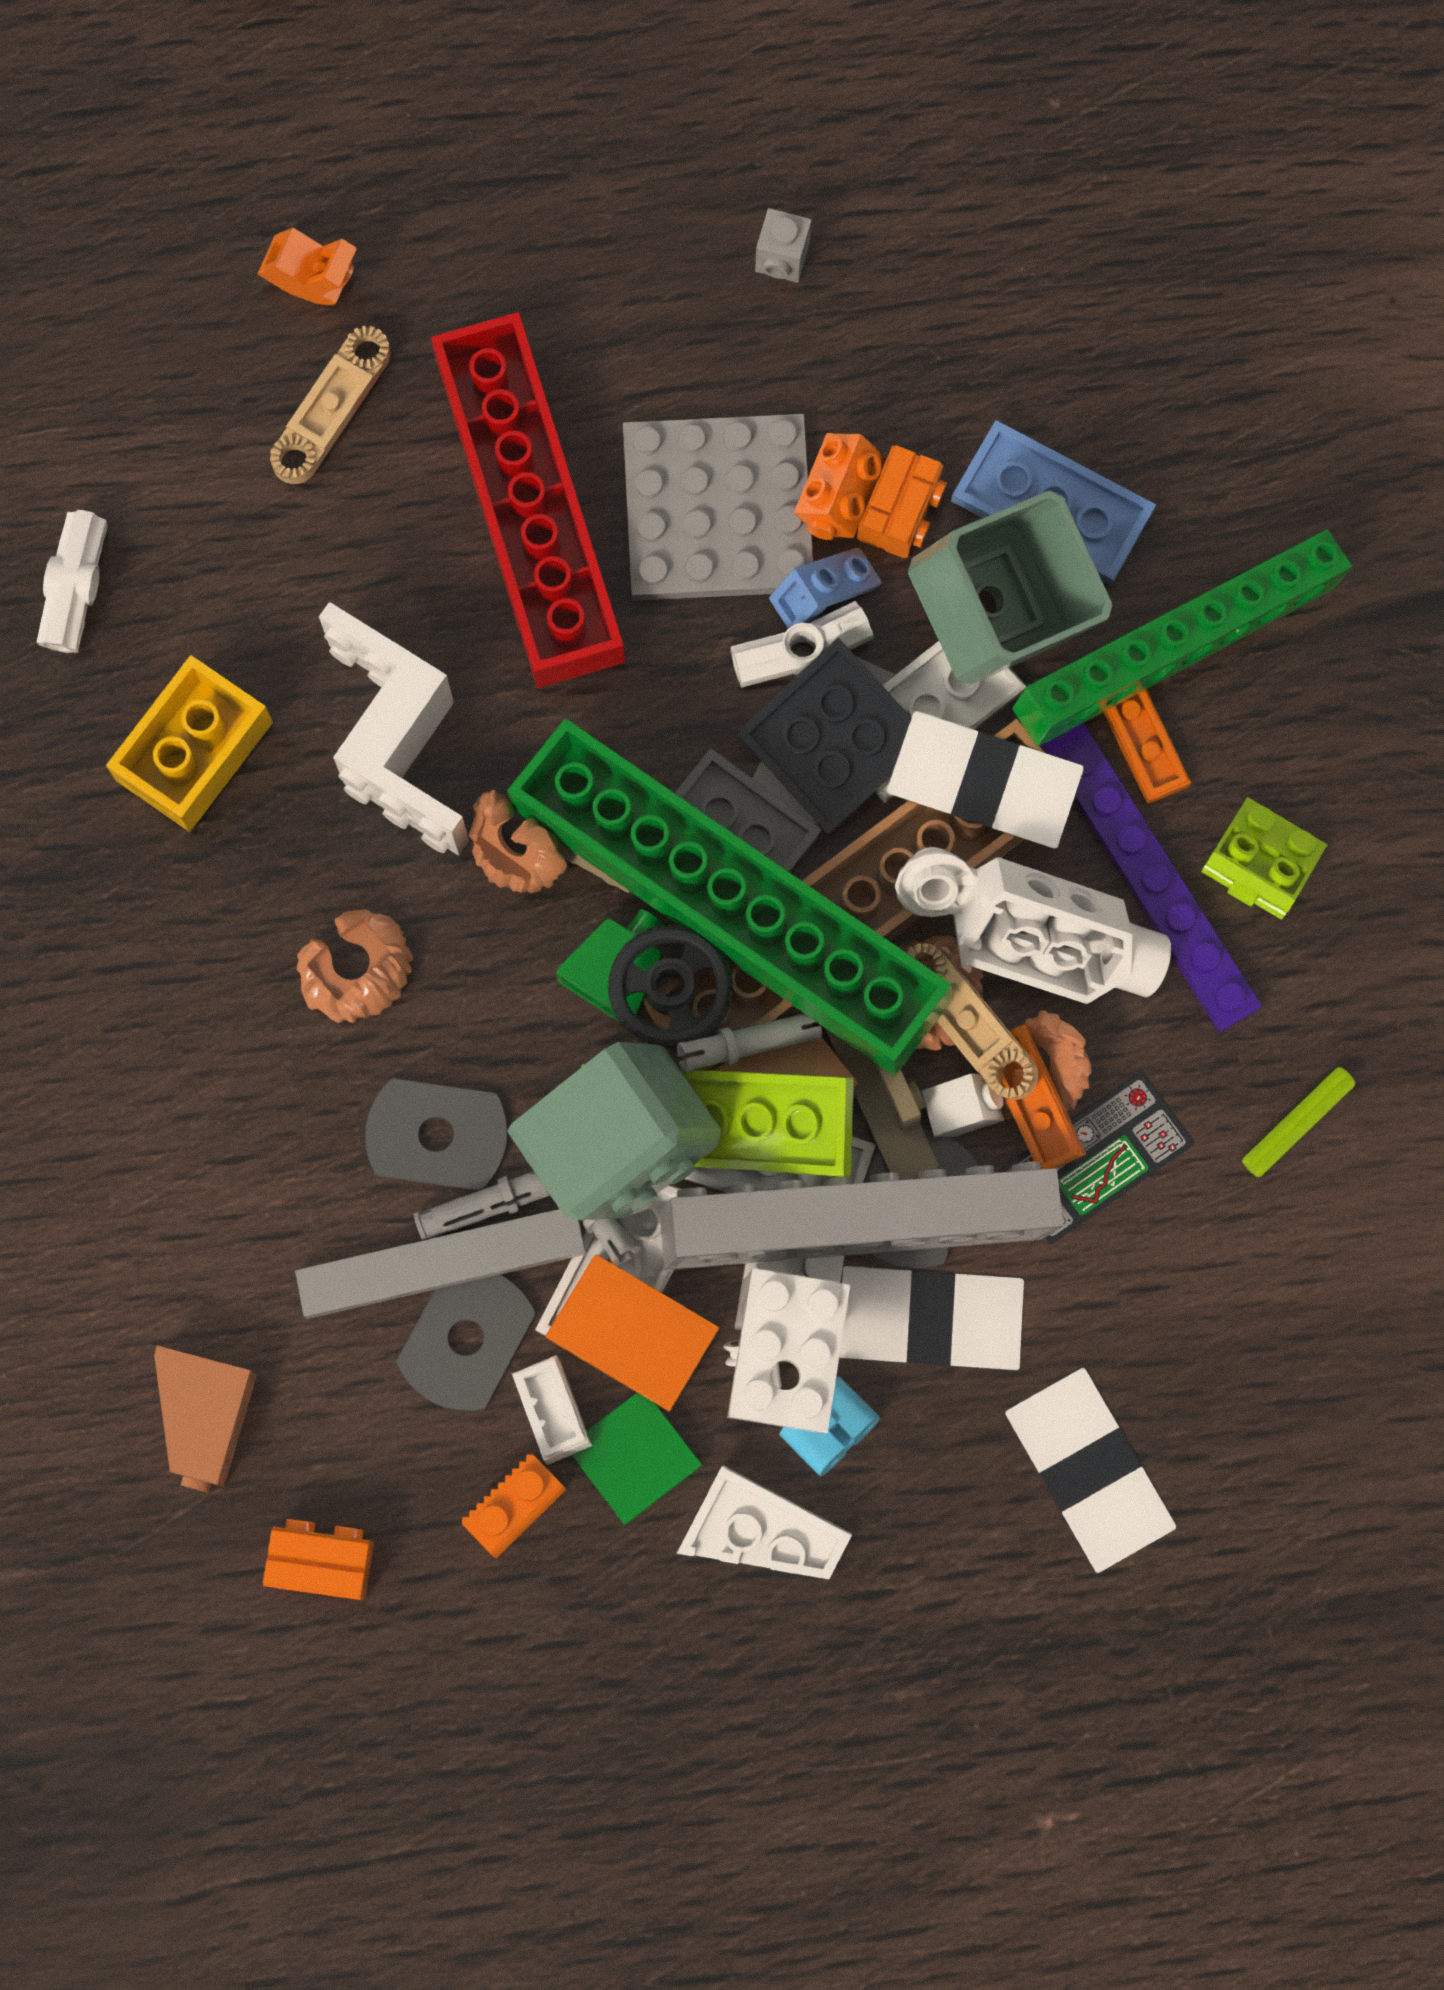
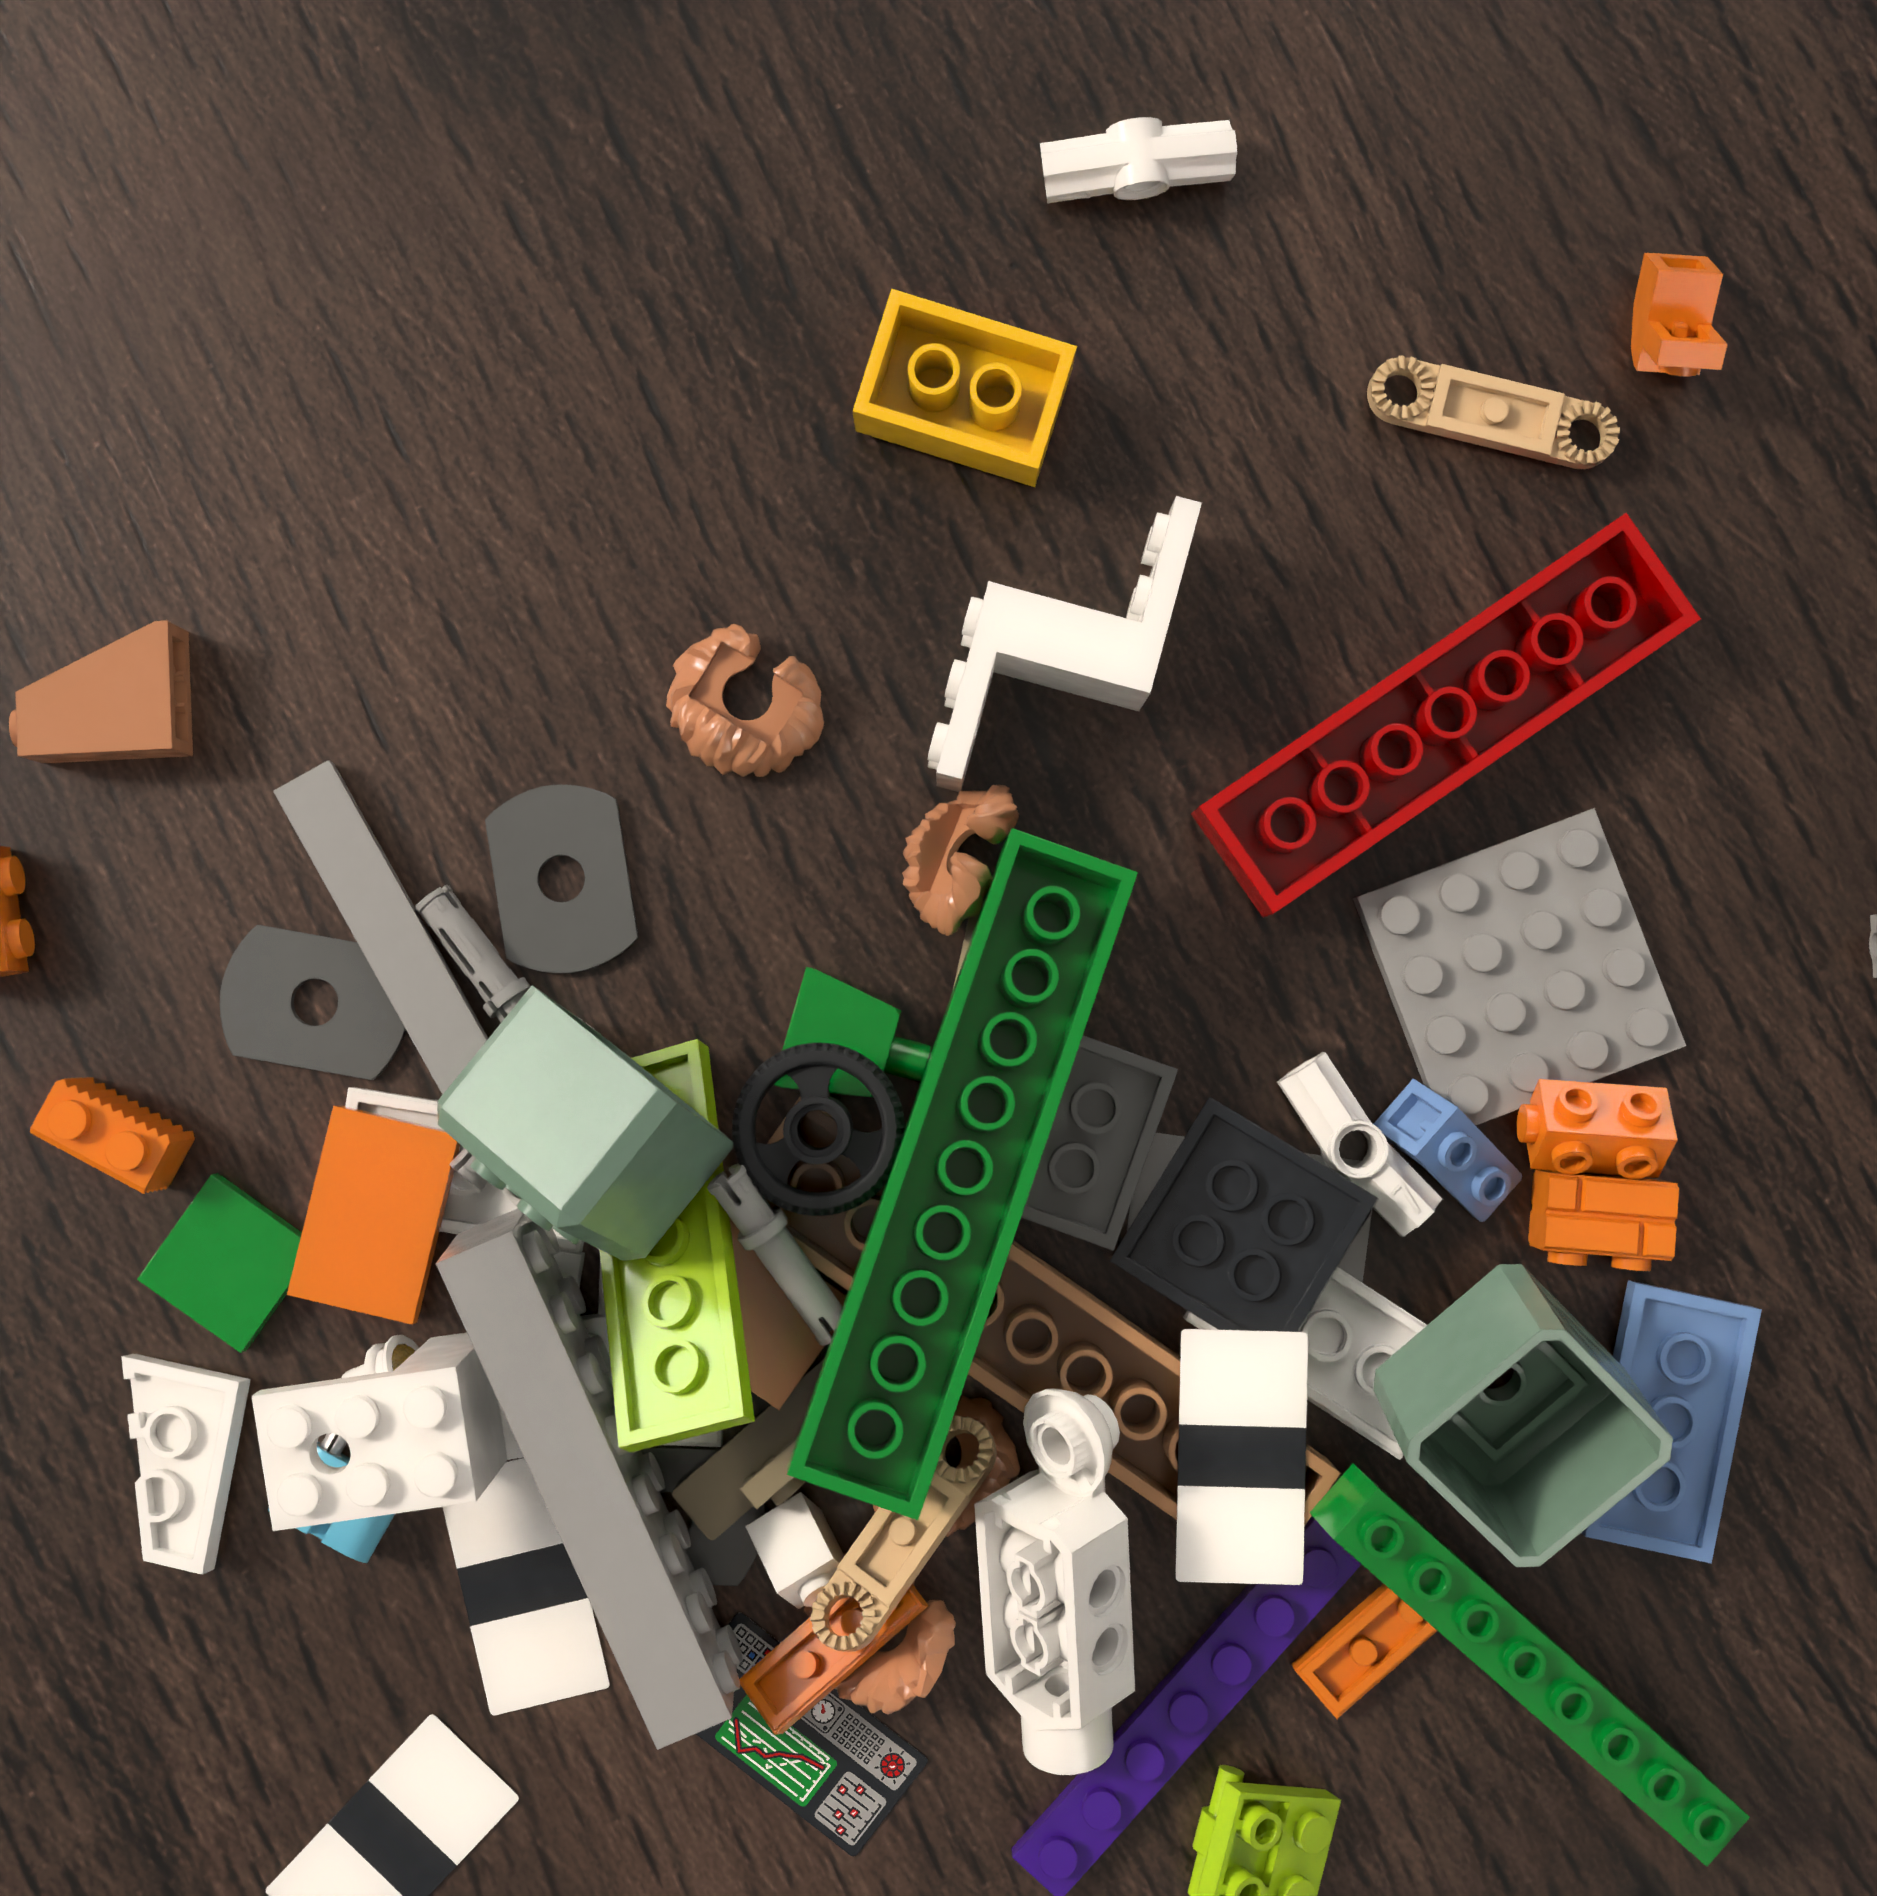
camera: 75 degrees right, 10 degrees up
(552, 1410) = (251, 1142): white plate -> none

